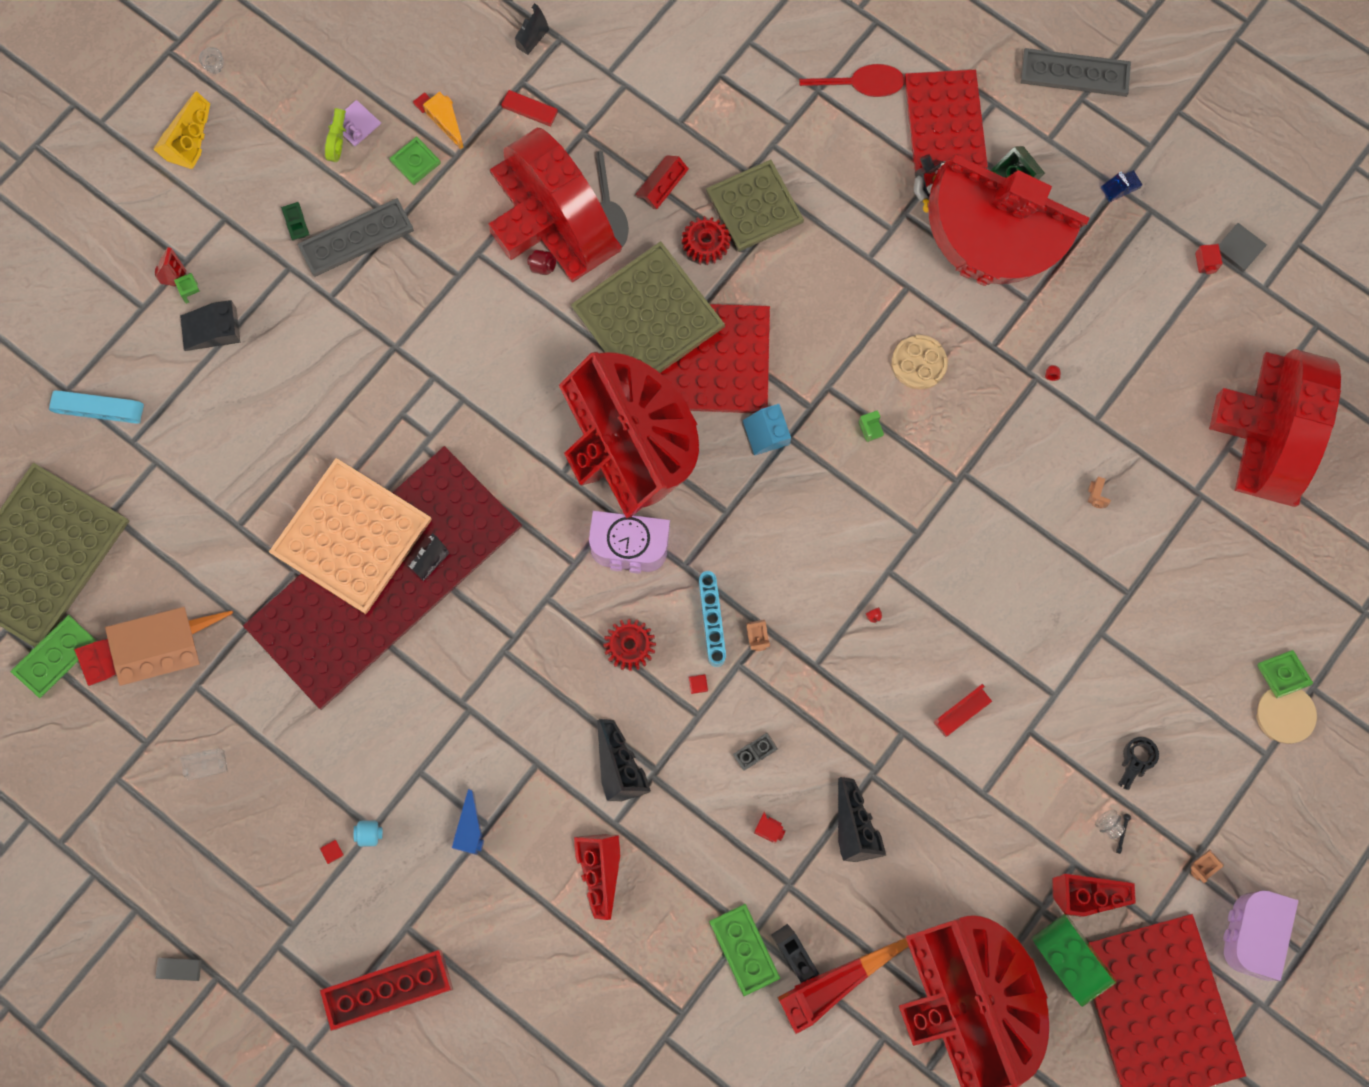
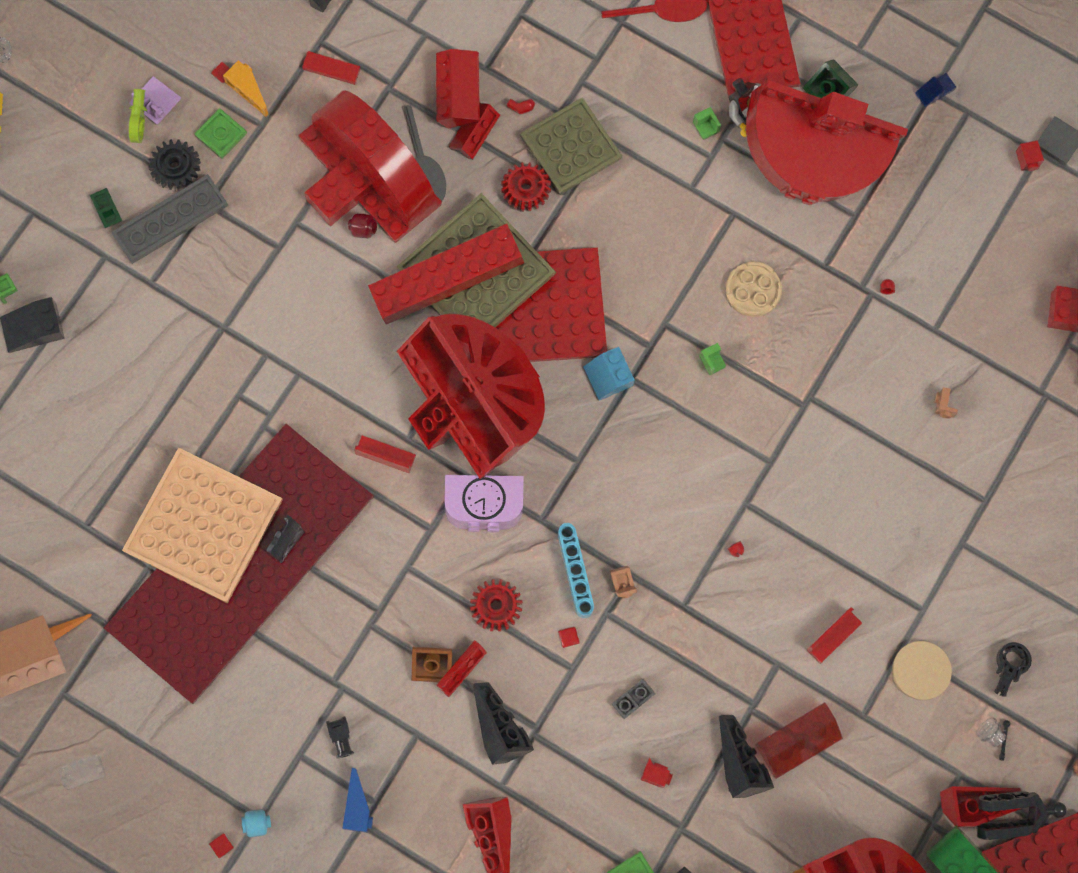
camera: 10 degrees left, 0 degrees up
(362, 175) = (177, 175): none -> black gear
(460, 755) = (340, 735): none -> black connector
(538, 485) = (385, 454): none -> red panel
(559, 696) = (430, 663): none -> dark orange slope
(588, 703) = (461, 668): none -> red tile
(617, 316) = (446, 274): none -> red brick
(649, 137) = (457, 87): none -> red slope
(710, 164) = (522, 107): none -> red arm
(890, 196) = (706, 123): none -> bright green panel
(917, 811) = (800, 740): none -> clear red slope
(1047, 755) = (921, 670): none -> tan tile
(1127, 923) = (1016, 828): none -> black piece

